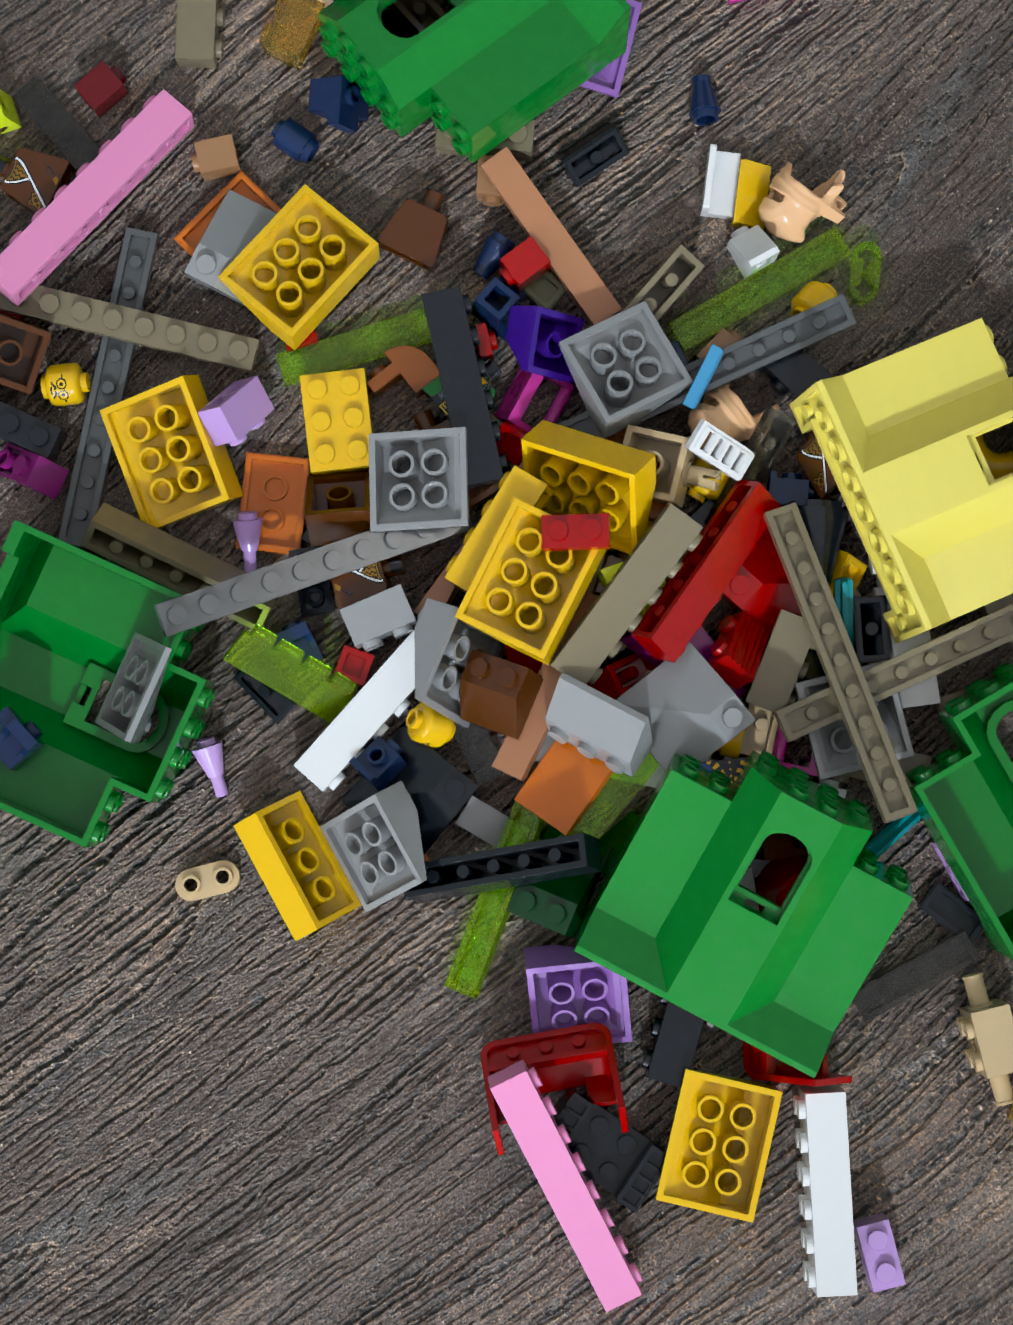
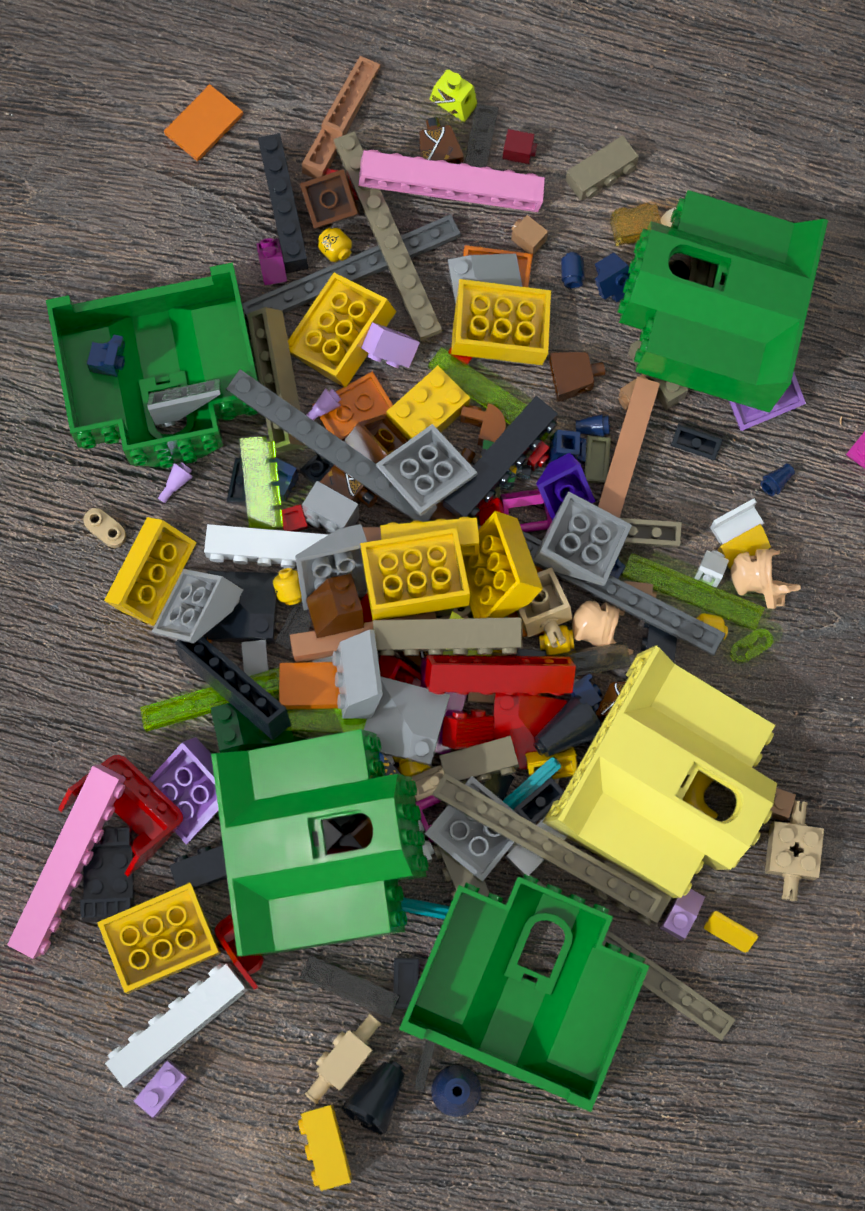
camera: 50 degrees right, 10 degrees down
(380, 762) = (245, 572): dark blue brick -> none
(524, 264) = (600, 444): red brick -> none
(576, 532) = (461, 574): red plate -> none
(703, 377) = (612, 589): dark azure tile -> none
(736, 459) = (578, 644): white slope -> none
(840, 663) = (501, 790): dark tan plate -> none

